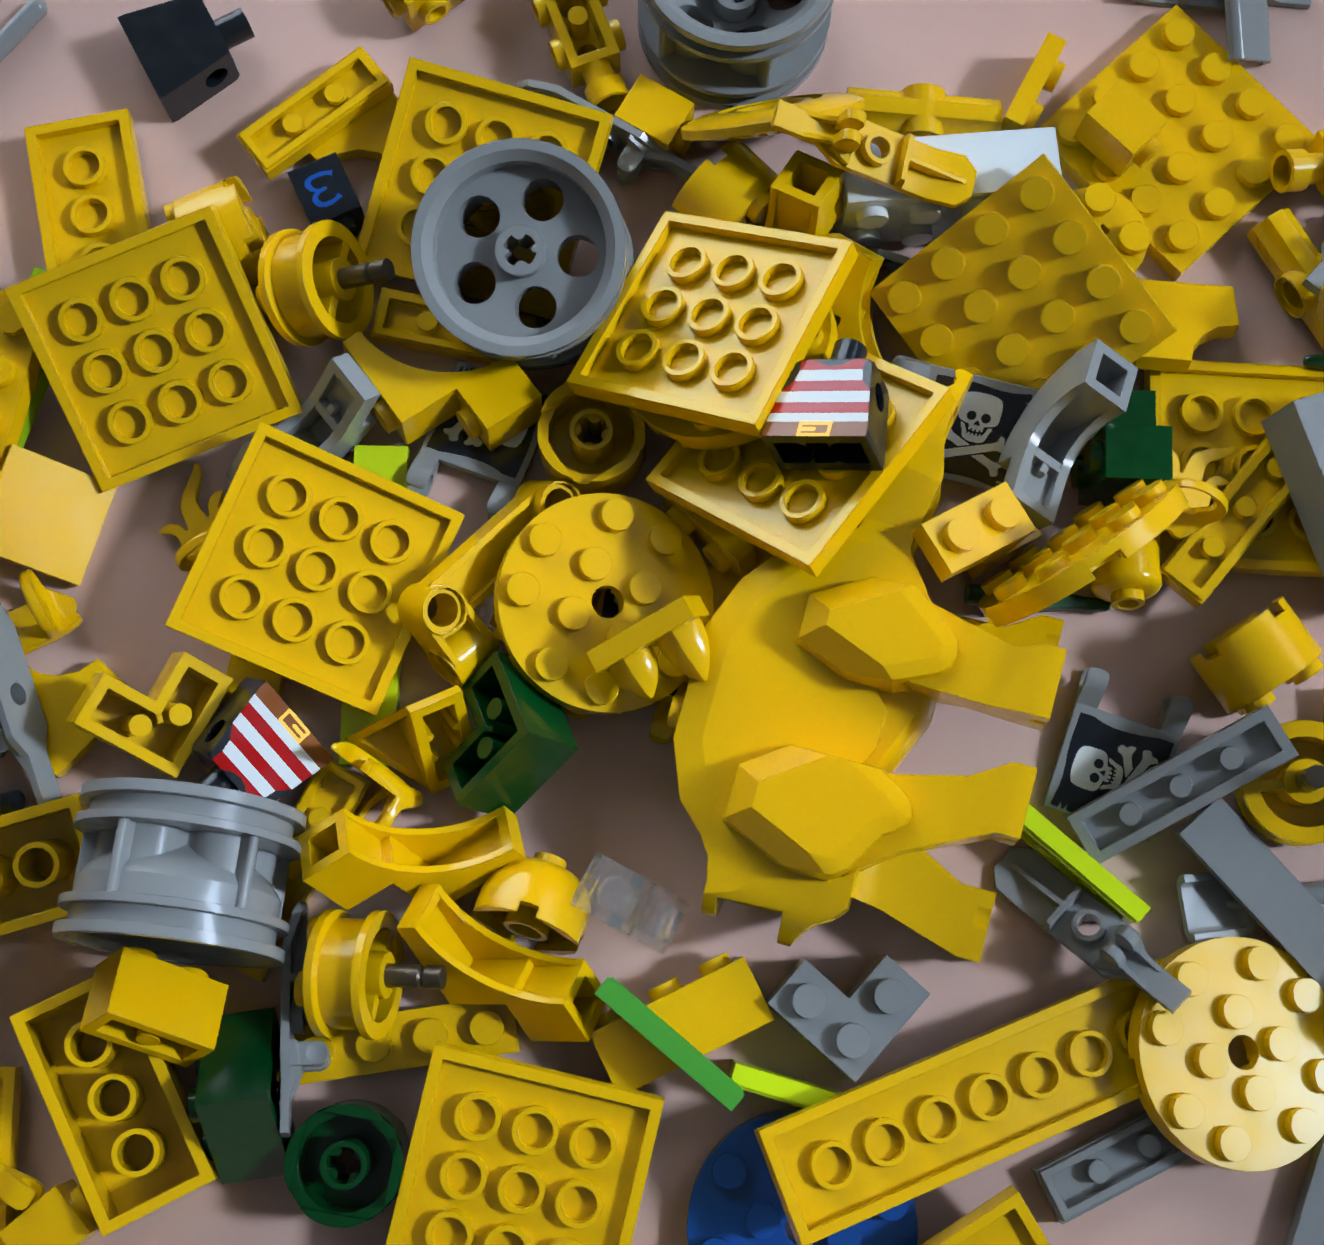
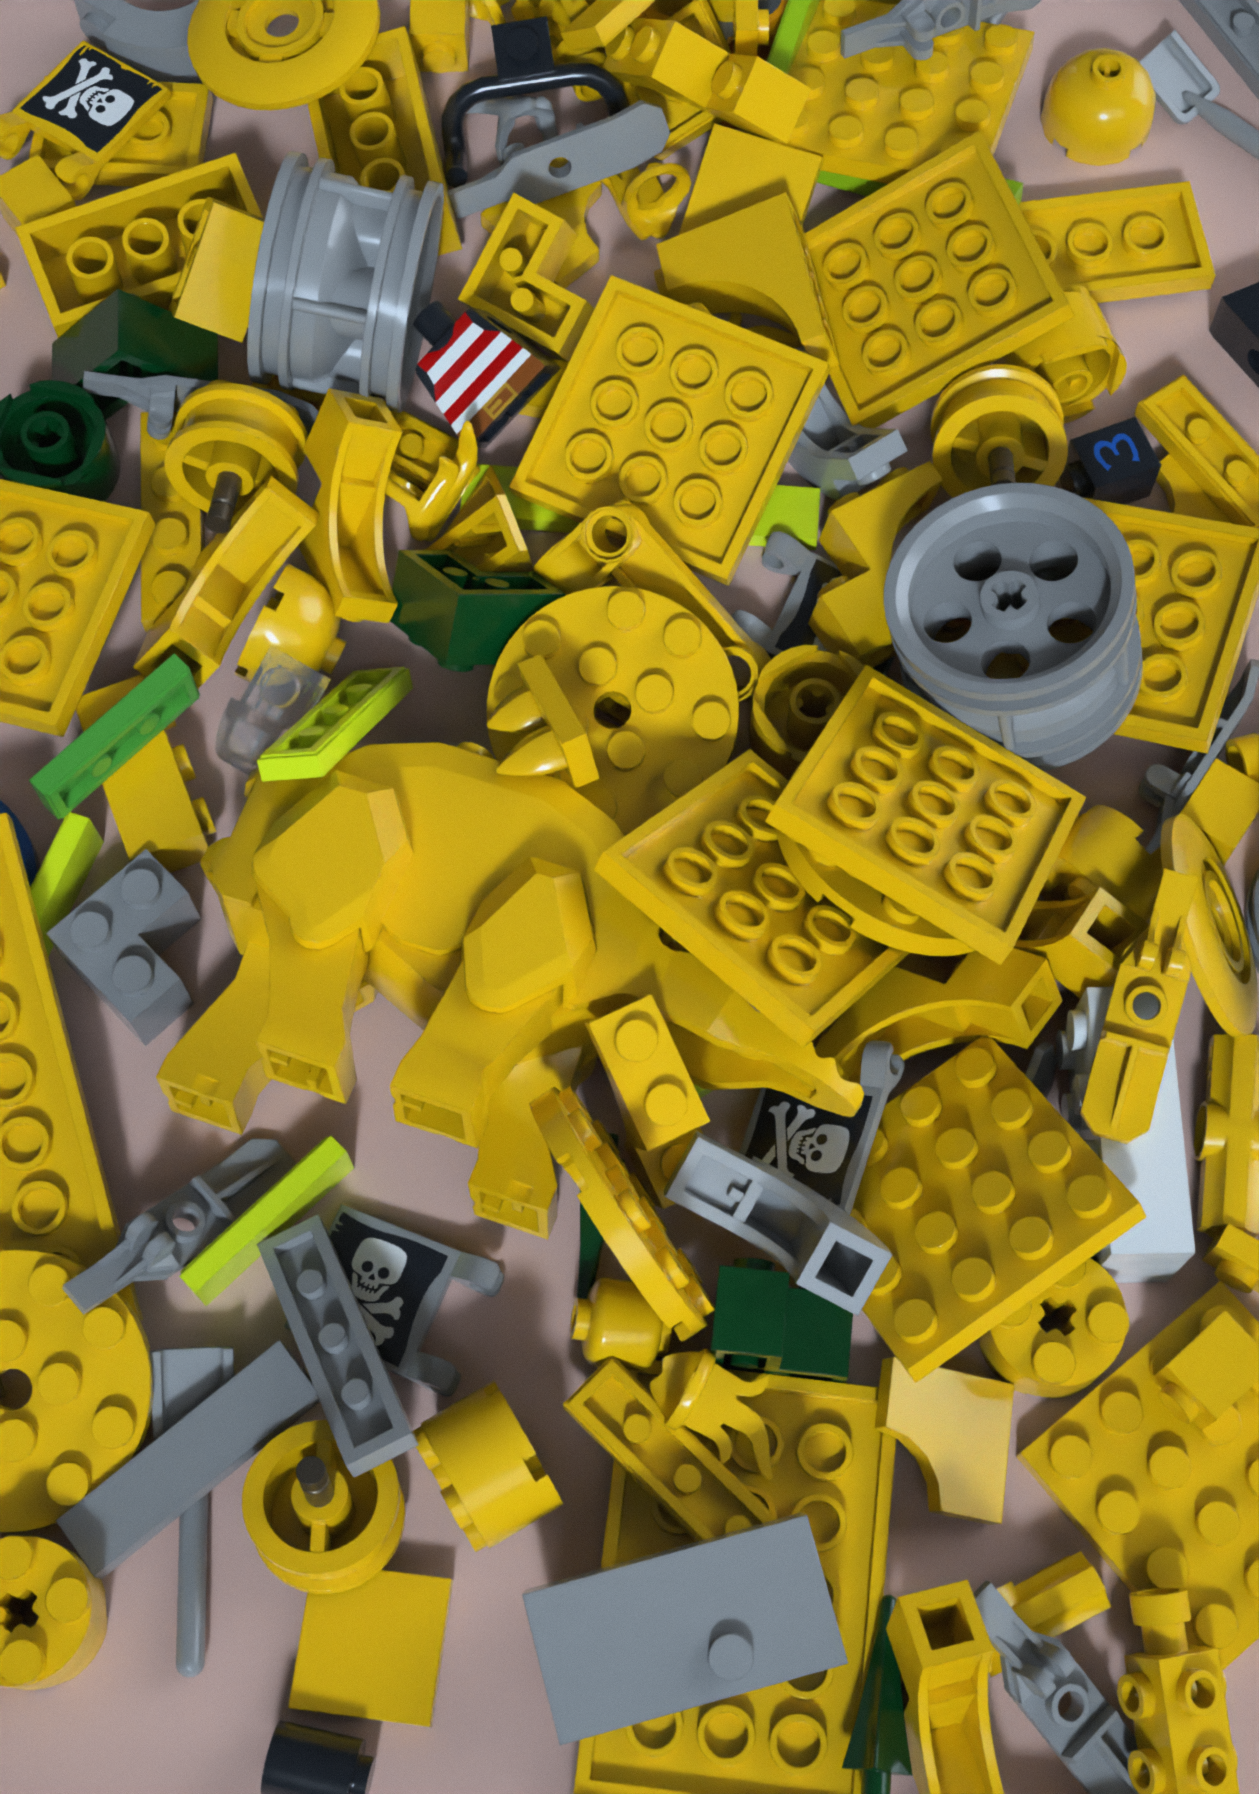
camera: 100 degrees right, 10 degrees down
(128, 507) = (752, 266): none -> yellow arch
(649, 839) = (335, 724): none -> neon yellow tile
(830, 413) = (794, 902): torso -> none

